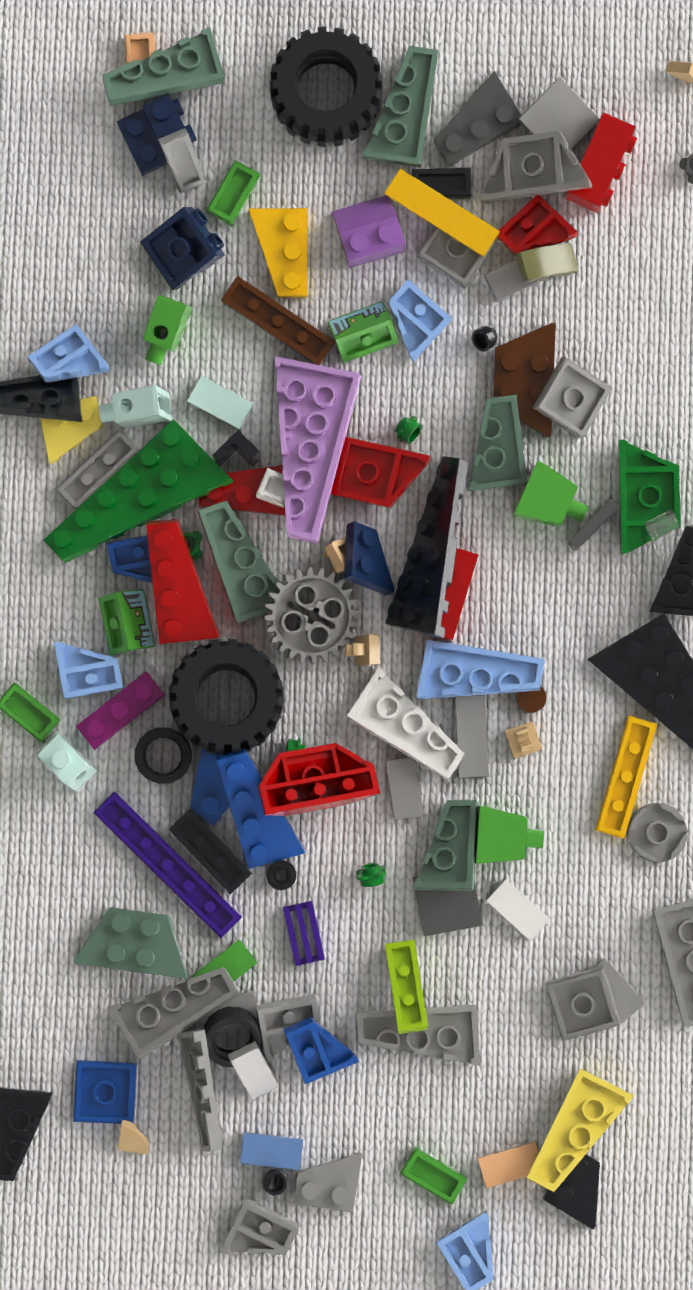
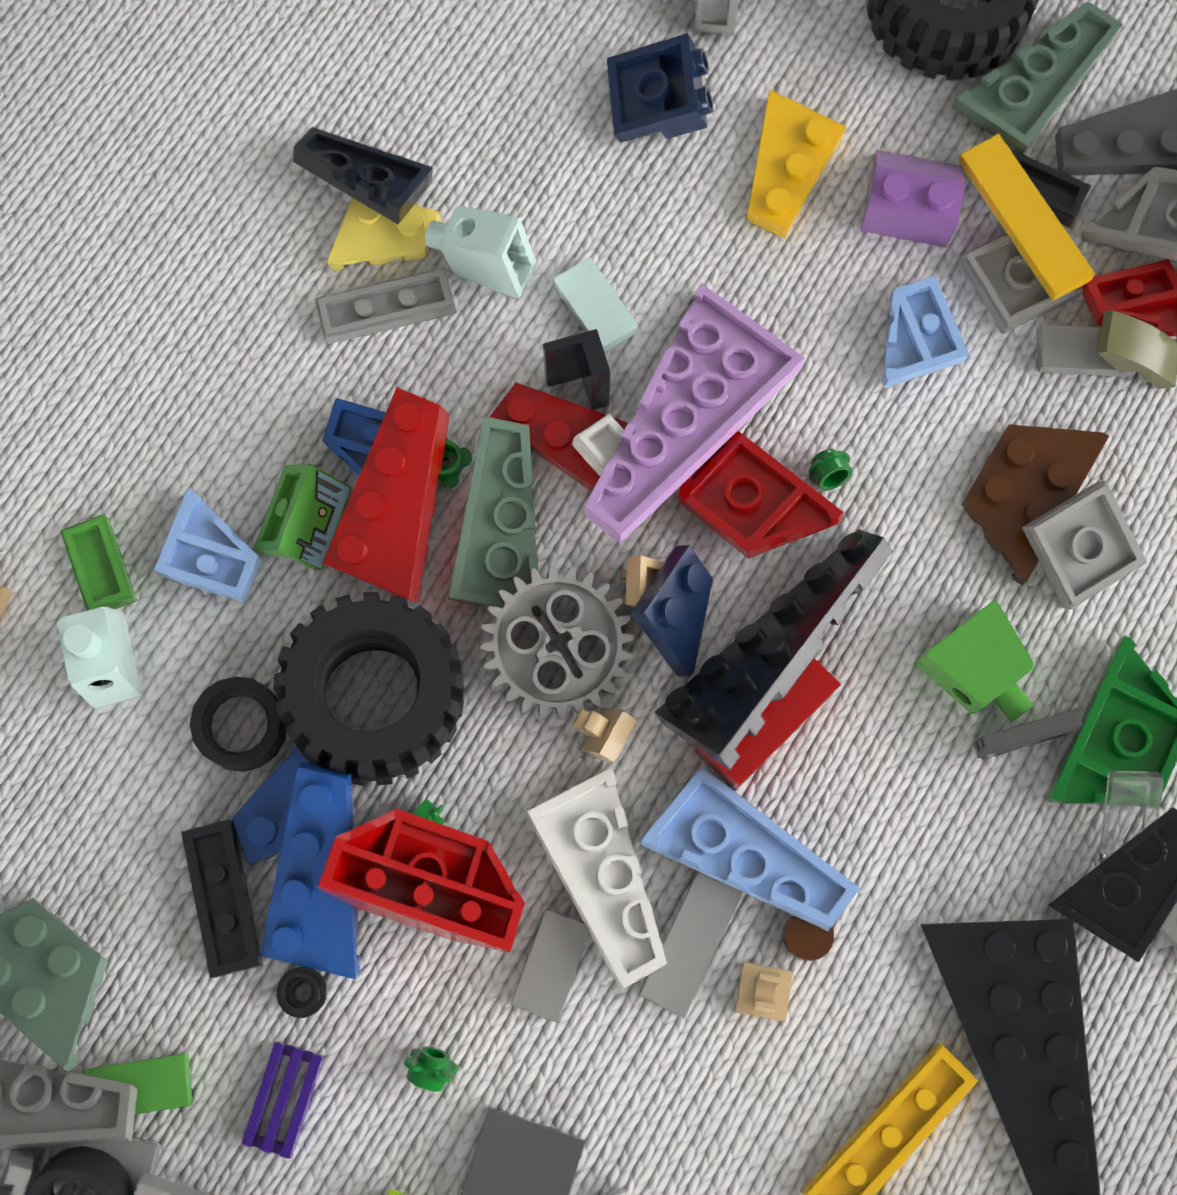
camera: 25 degrees right, 10 degrees down
(68, 357) = (430, 145): light blue wing -> none
(120, 710) = (220, 631): magenta plate -> none
(147, 487) = (442, 356): green wing -> none
(166, 314) = (580, 166): bright green torso -> none
(167, 864) = (154, 887): dark purple tile -> none
(233, 193) = (760, 65): bright green tile -> none
(278, 321) = (730, 242): reddish brown plate -> none
(363, 331) = (837, 315): bright green panel -> none
(452, 854) = (569, 1103): sand green wing -> none
(484, 338) = (999, 404): black hinge -> none
(500, 446) = (947, 557): sand green wing -> none
(504, 836) = (658, 1124): bright green torso -> none

